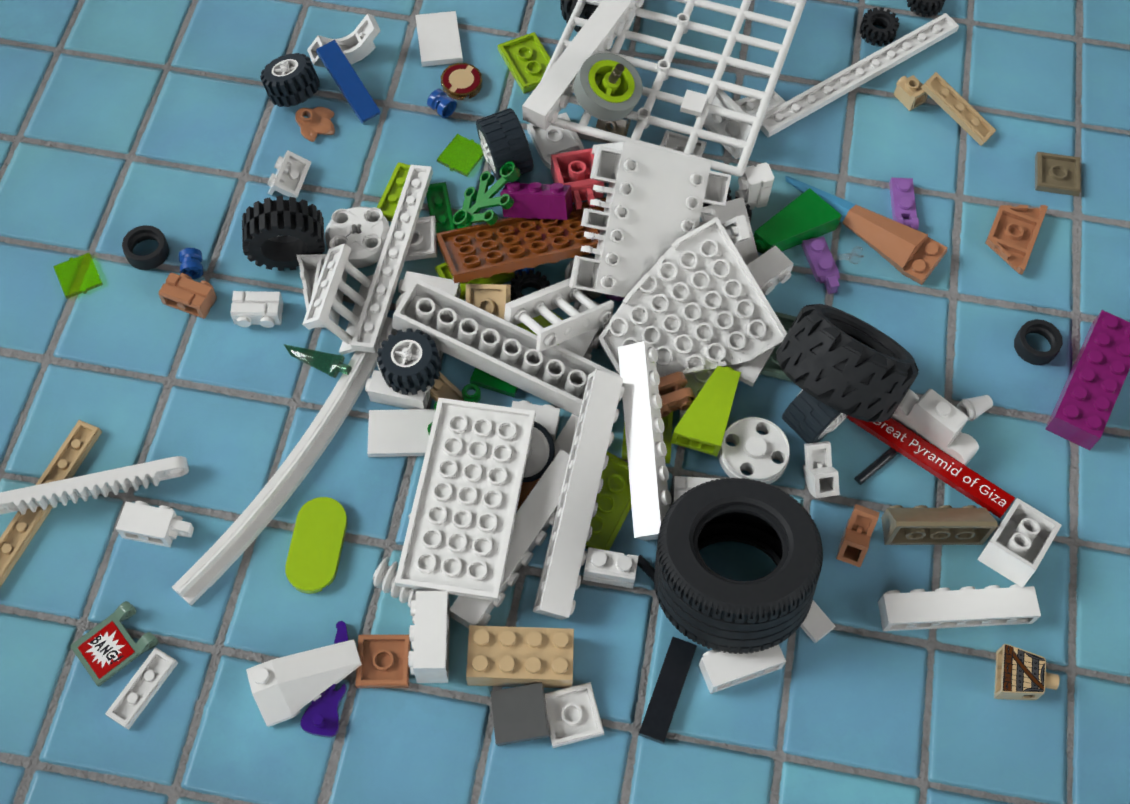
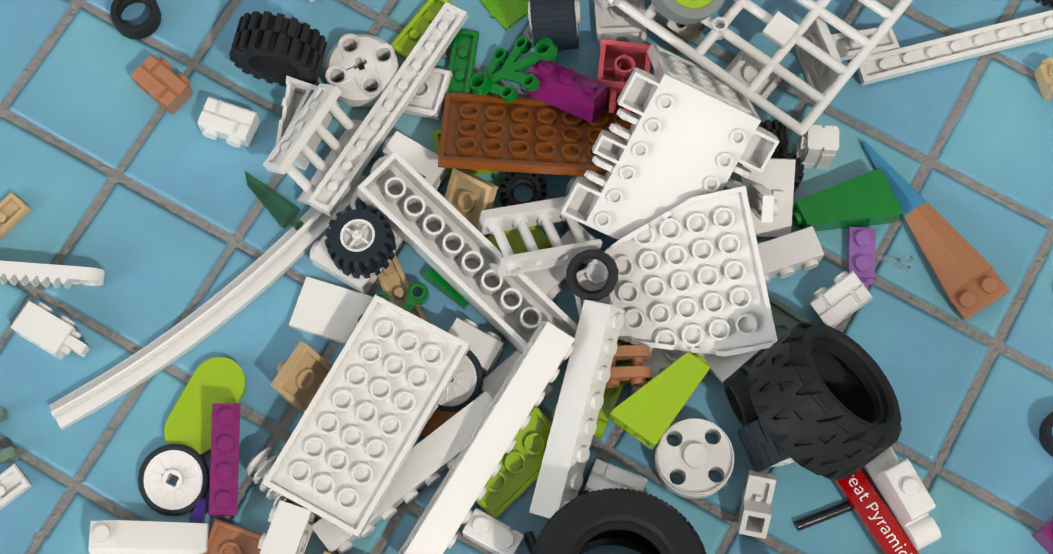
camera: 20 degrees right, 10 degrees up
(78, 275) = (58, 23): clear neon green piece -> none
(191, 262) = (176, 47): blue wheel -> none
(291, 613) = (156, 473): none -> white wheel
(351, 580) = (224, 460): none -> magenta brick
(395, 489) = (300, 376): none -> tan tile
(618, 309) = (577, 289): none -> black tyre
(775, 390) = (739, 397): none -> black tyre
(824, 288) = (841, 299): none -> white brick
(903, 202) = (986, 215): medium lavender plate -> none
(975, 406) = (959, 486): white cone -> none

